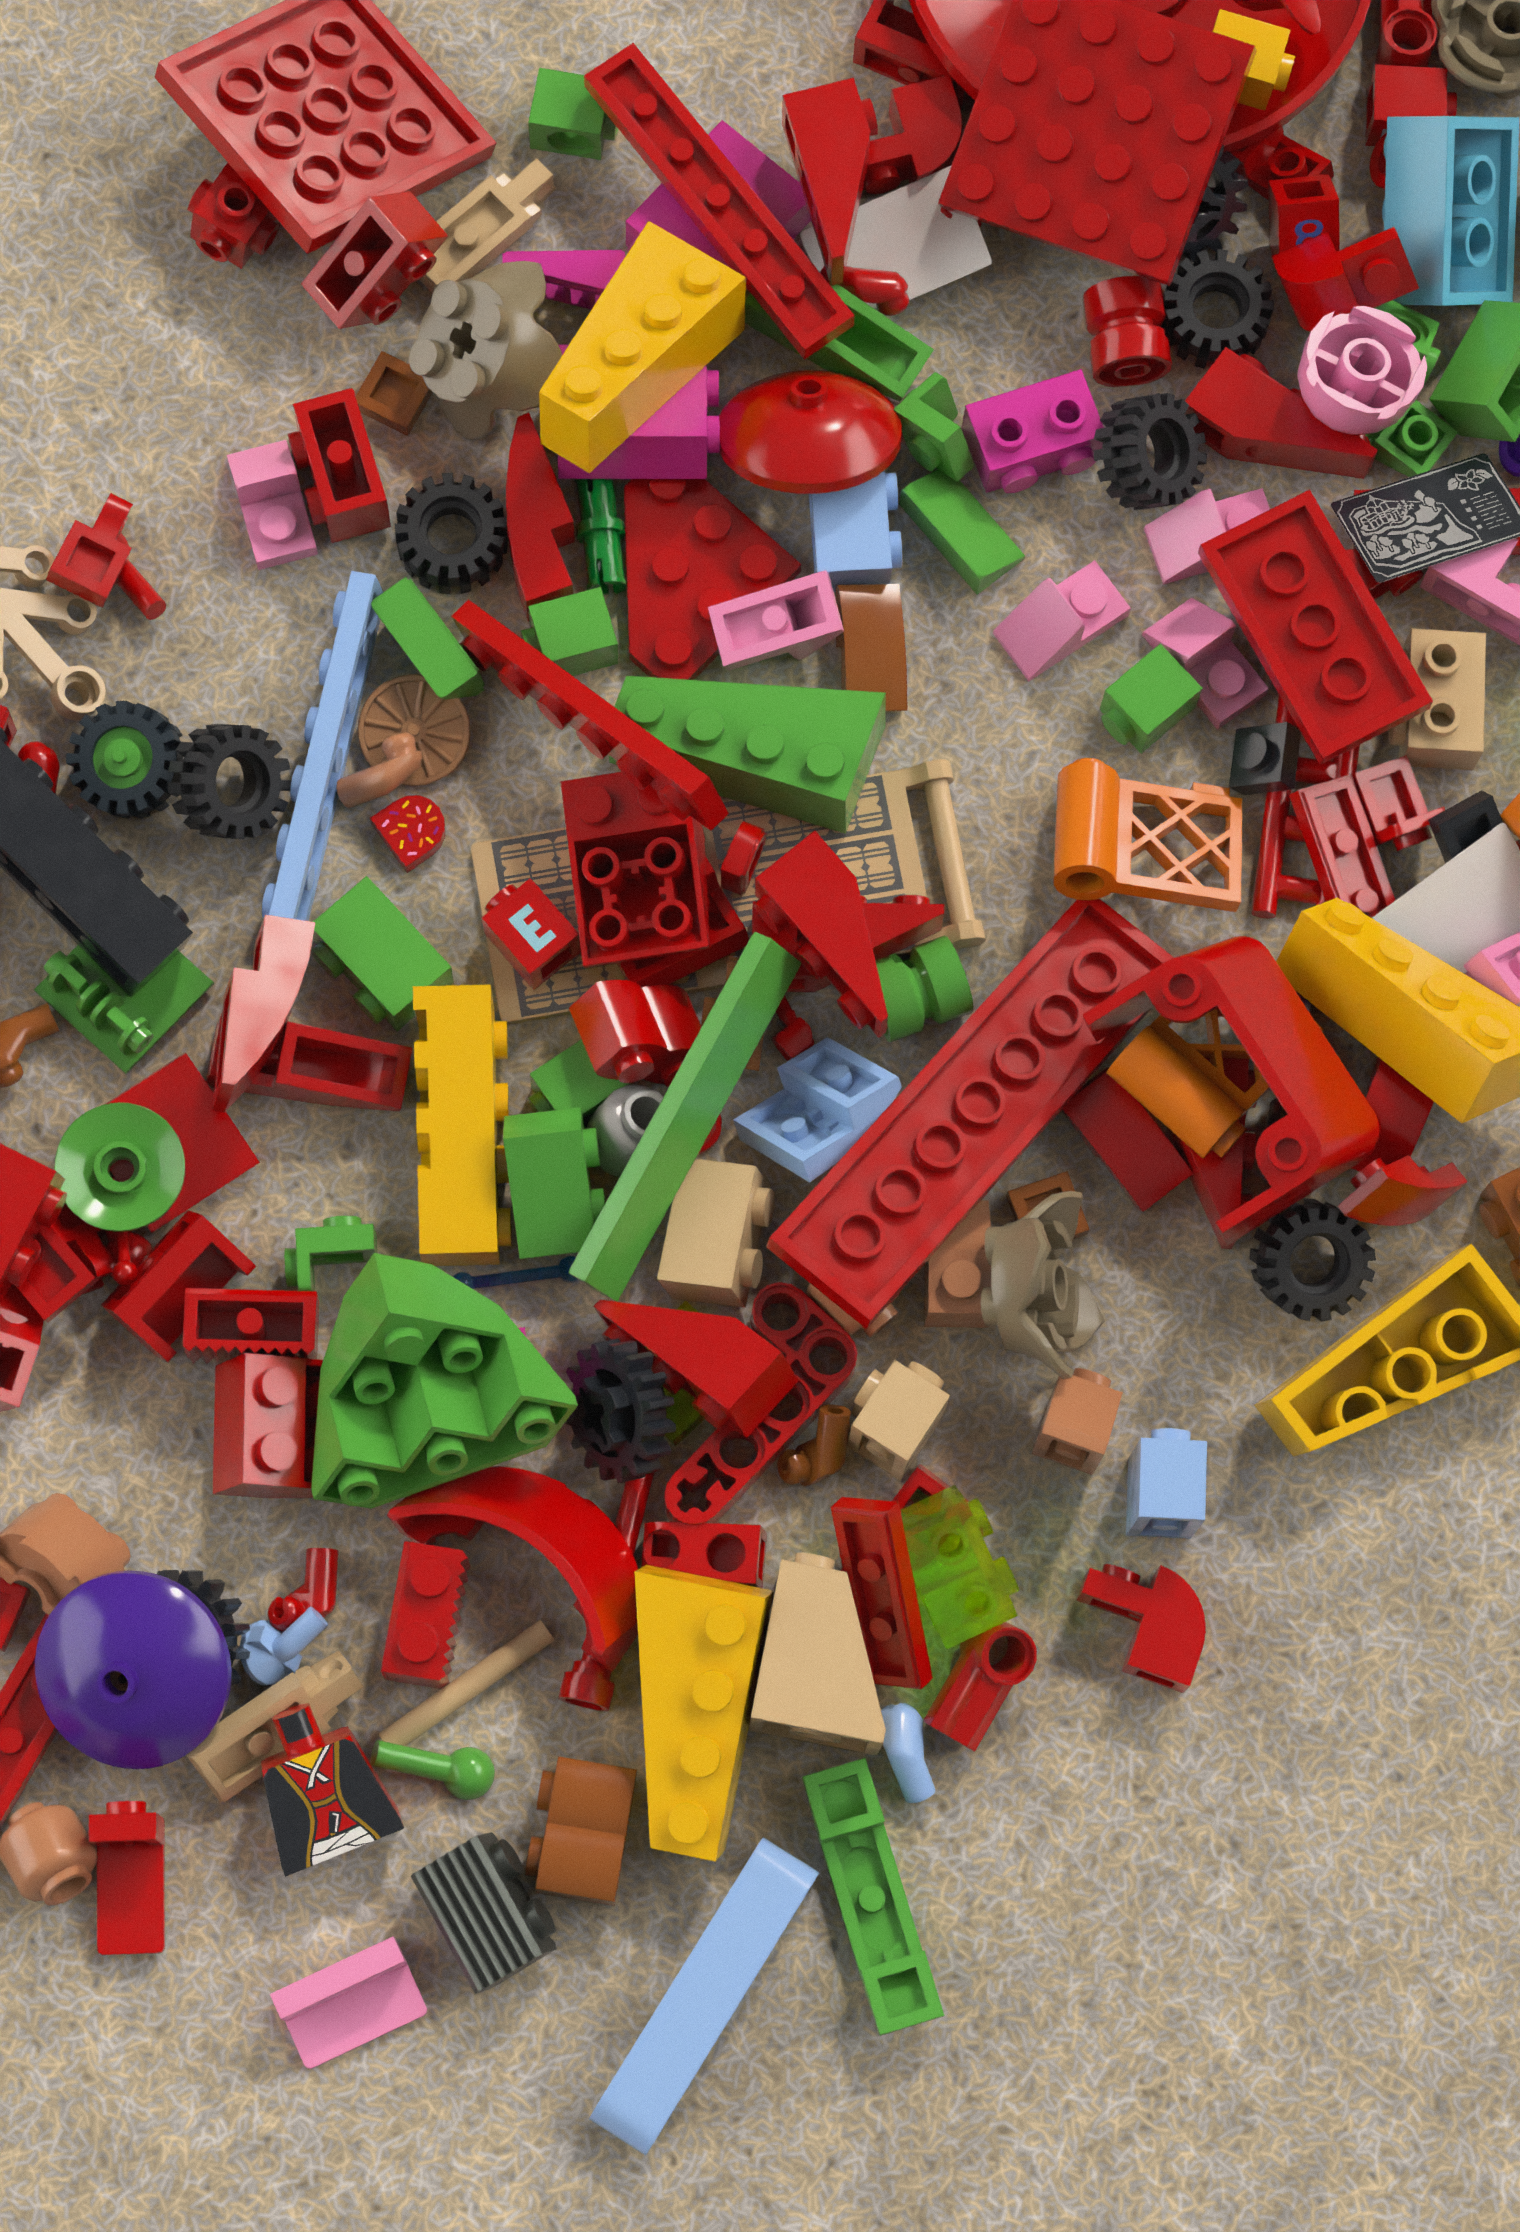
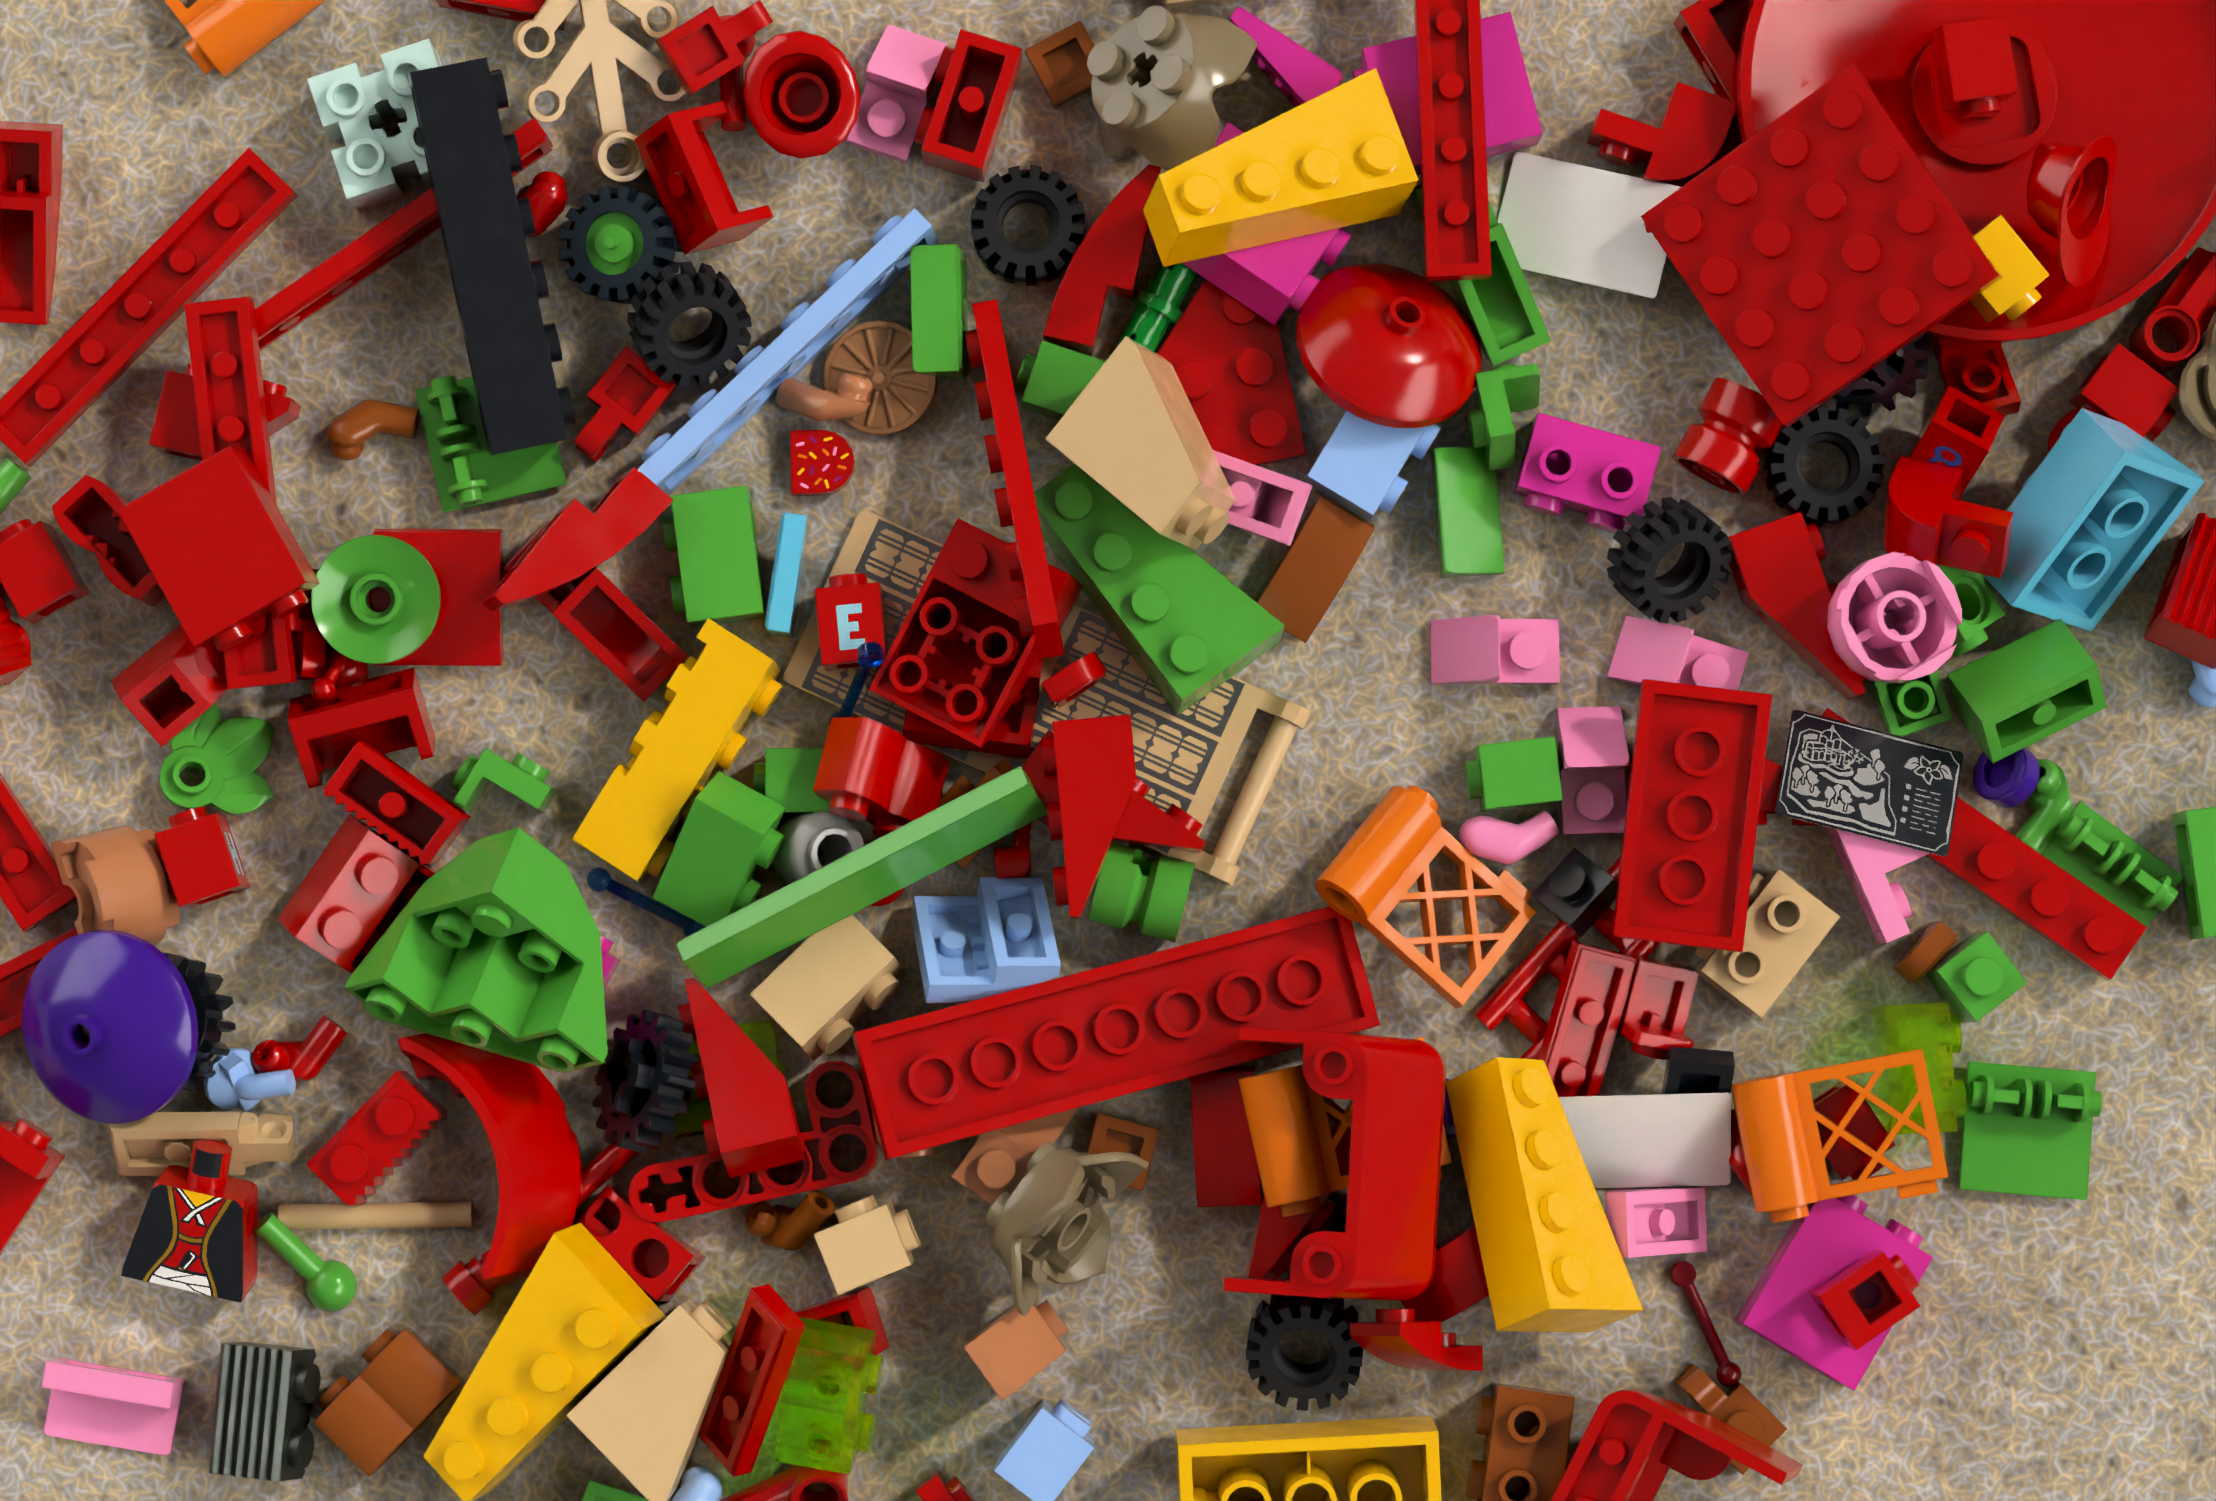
camera: 35 degrees right, 10 degrees up
(79, 1392) = (228, 759): none -> bright green plate
(114, 1485) = (201, 857): none -> red brick
(154, 670) = (692, 181): none -> red panel
(195, 544) = (801, 94): none -> red hat
(216, 879) = (627, 398): none -> red plate
(448, 930) = (786, 575): none -> medium azure tile
(566, 937) = (869, 656): none -> clear blue hinge
(673, 624) = (1147, 446): none -> tan slope
(830, 146) = (1576, 115): red slope -> none
(876, 286) = (1532, 245): red arm -> none
(1178, 758) = (1504, 840): none -> bright pink arm

